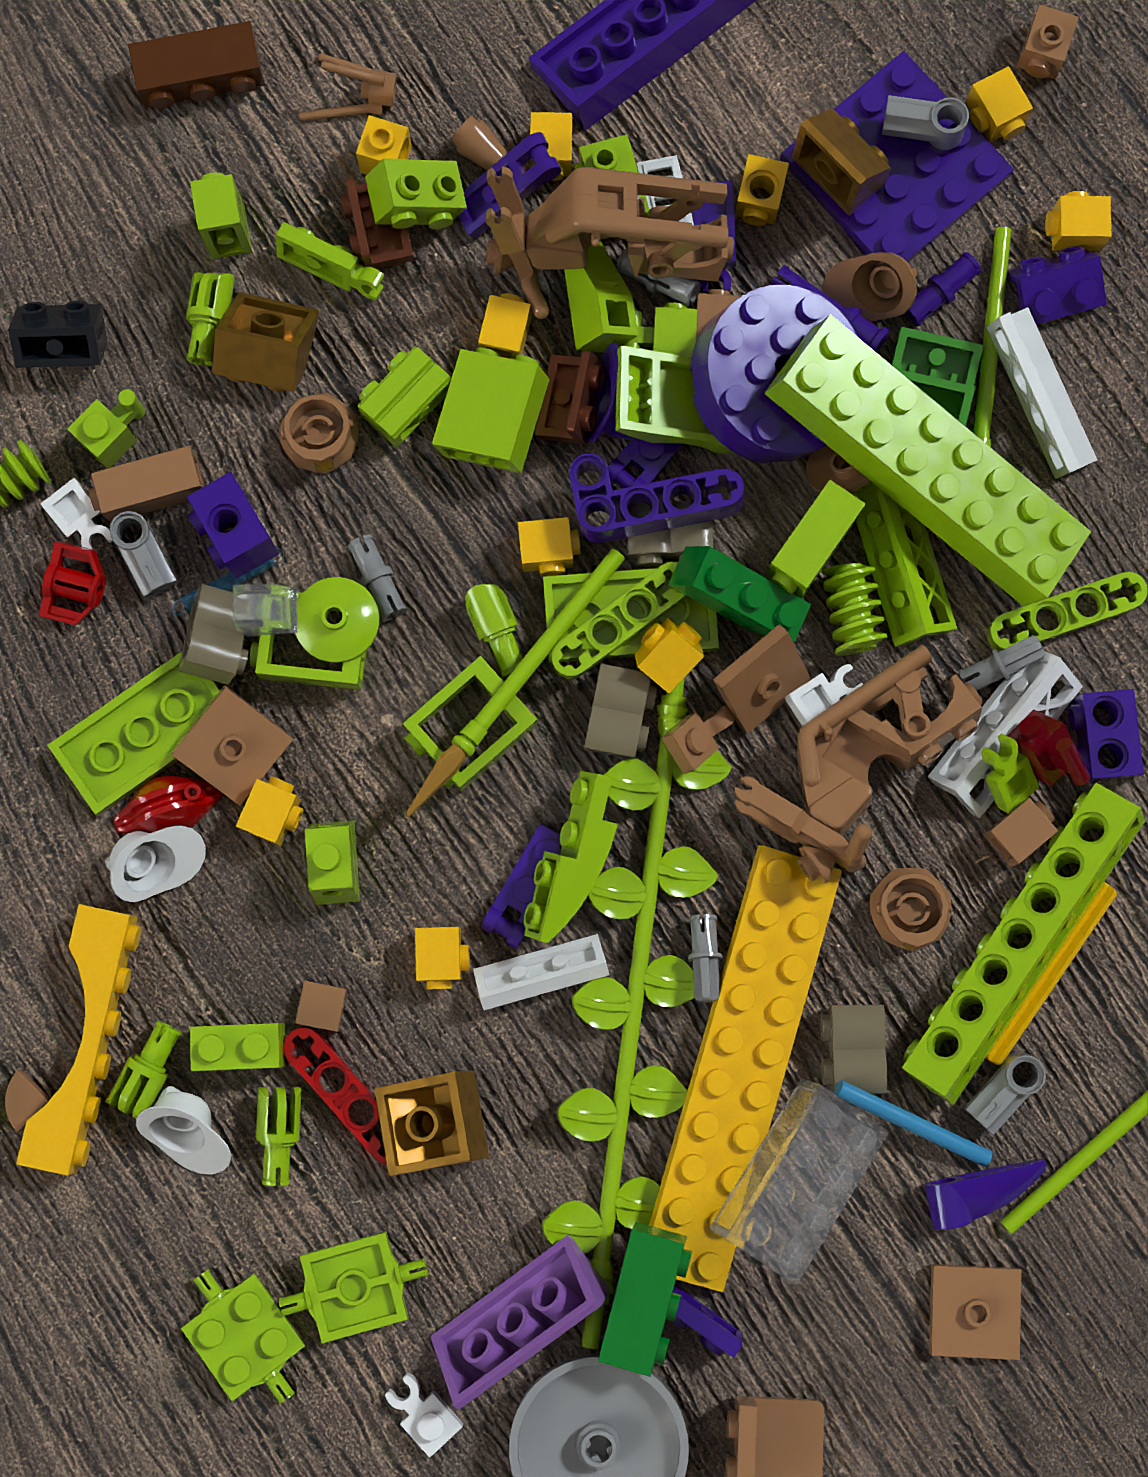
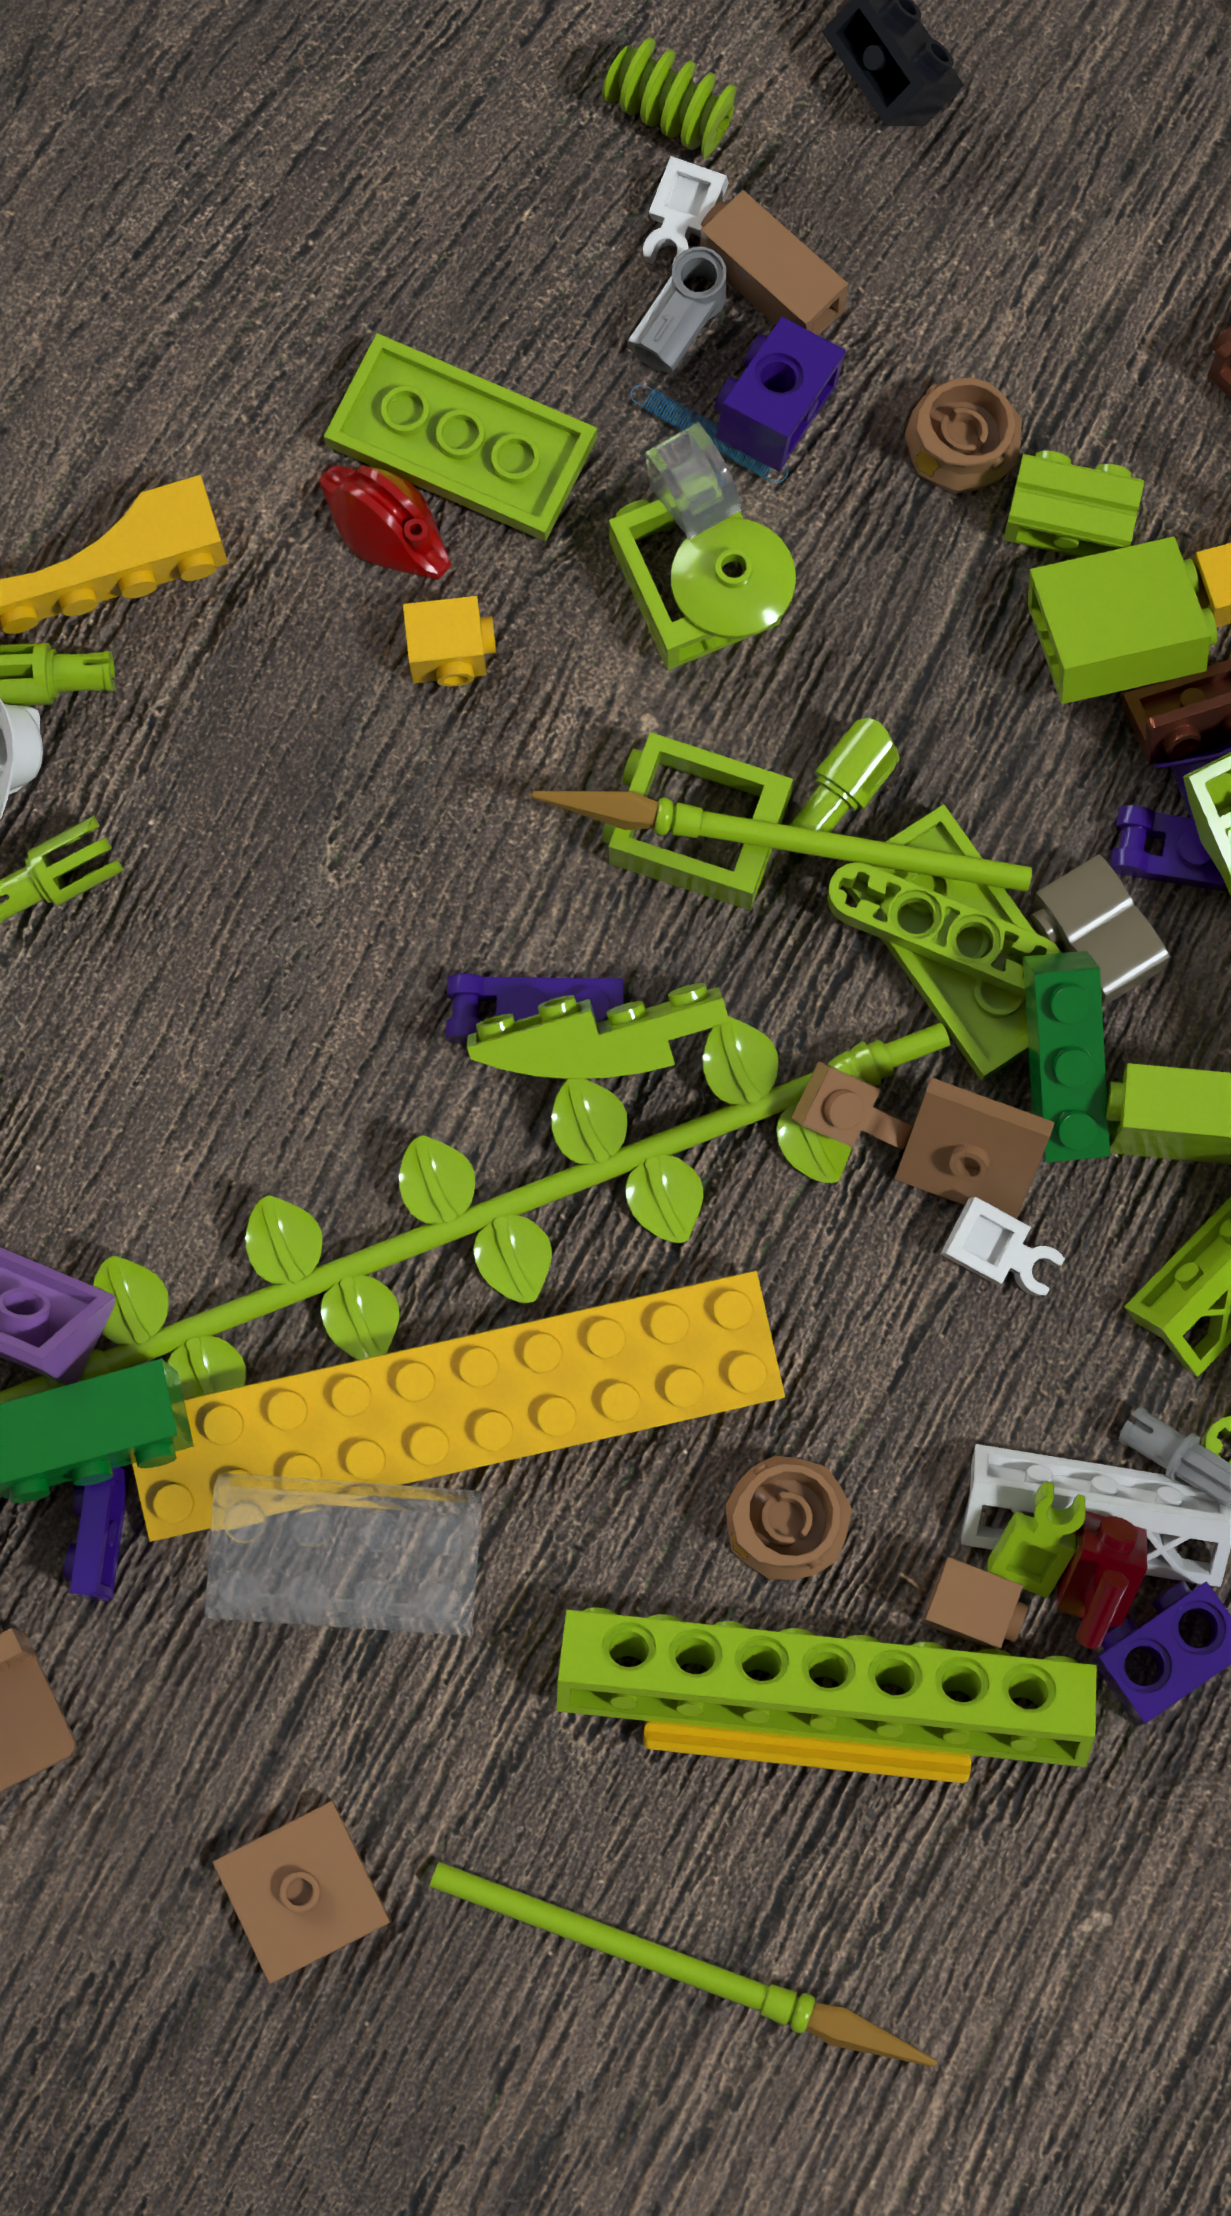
camera: 65 degrees right, 5 degrees down
(55, 585) = (594, 250): red piece -> none
(106, 431) = (807, 179): lime brick -> none
(154, 861) = (304, 538): white piece -> none
(207, 304) = (1031, 217): lime arm -> none
(211, 643) = (609, 449): dark tan brick -> none
(220, 215) = (1162, 157): lime brick -> none
(231, 745) = (504, 546): medium nougat plate -> none
(237, 1047) = (131, 764): lime brick -> none
(264, 342) = (1037, 302): pearl gold slope -> none
(321, 1006) = (239, 841): medium nougat tile -> none
(327, 261) = (1187, 318): lime plate -> none
(332, 862) = (427, 748): lime torso -> none
(341, 1100) = (135, 931): red beam -> none
(377, 577) = (820, 605): light grey pin -> none
(431, 1122) = (166, 1051): pearl gold slope -> none
(440, 956) = (382, 946): yellow brick -> none
(540, 972) = (433, 1083): white plate -> none
(548, 545) = (987, 788): yellow brick -> none
(618, 712) = (825, 996): dark tan brick -> none
(655, 494) = (1133, 877): dark purple beam -> none
(669, 653) = (936, 1009): yellow brick -> none
(705, 958) = (569, 1280): light grey axle -> none
(837, 756) = (939, 1296): medium nougat piece -> none
(853, 608) = (1139, 1219): lime piece -> none
(855, 1047) = (558, 1541): dark tan brick -> none
(913, 1123) = (502, 1668): dark azure bar -> none
(971, 1195) = (460, 1812): dark purple piece -> none
(1001, 1095) = (608, 1770): light grey piece -> none

